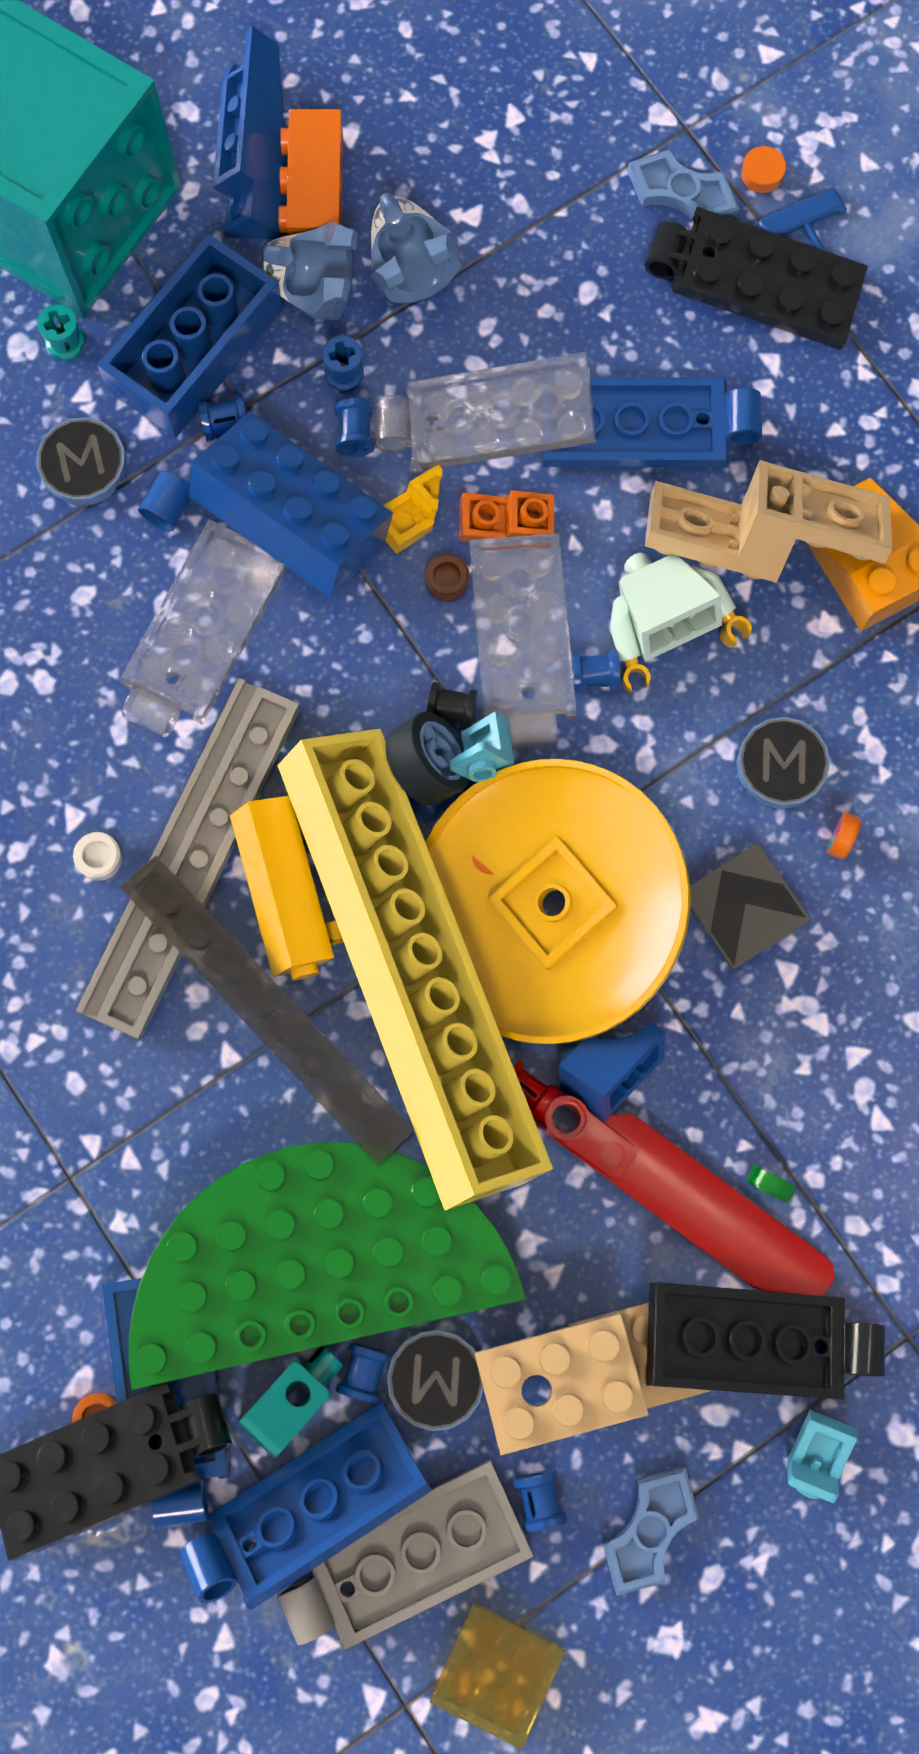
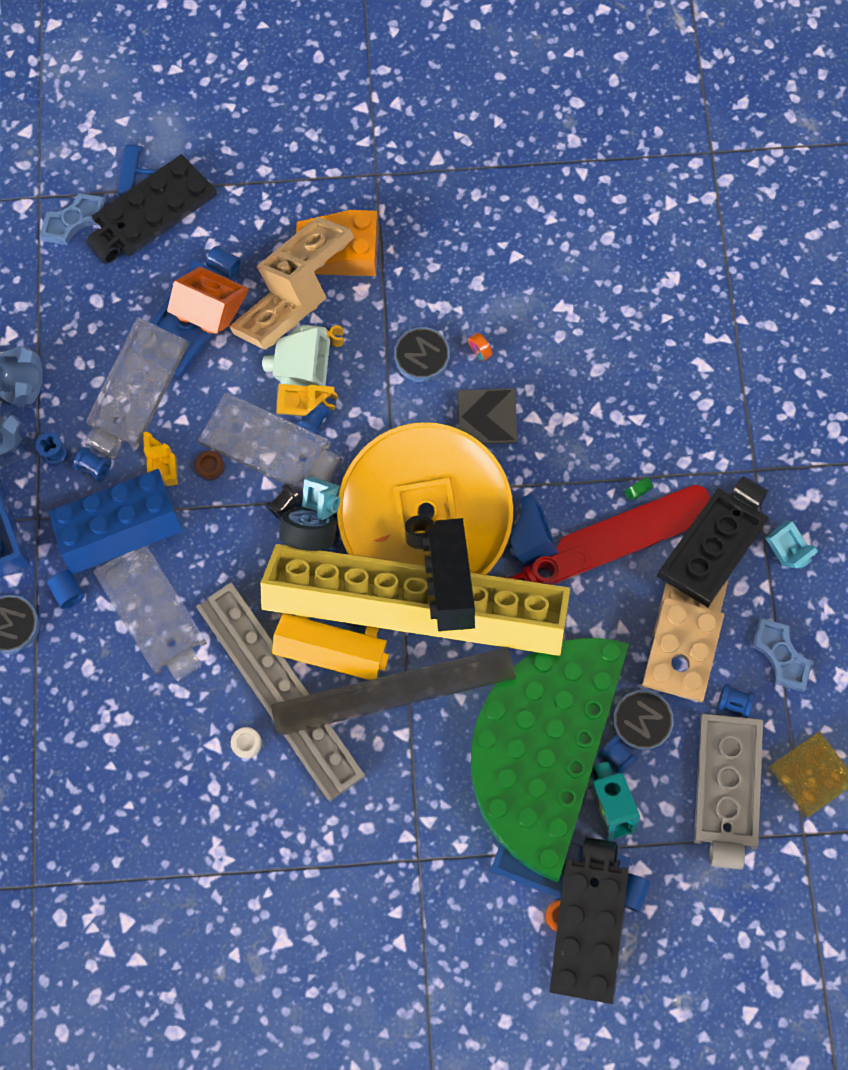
camera: 55 degrees left, 5 degrees down
(221, 416) = (37, 530): blue bush -> none
(306, 1511) = (675, 824): blue hinge -> none
(466, 985) = (449, 567): none -> black hinge
(508, 516) = (196, 415): orange slope -> none
(605, 636) = (300, 399): none -> yellow slope
(671, 426) = (206, 299): none -> orange slope
(763, 169) = (90, 172): orange tile -> none

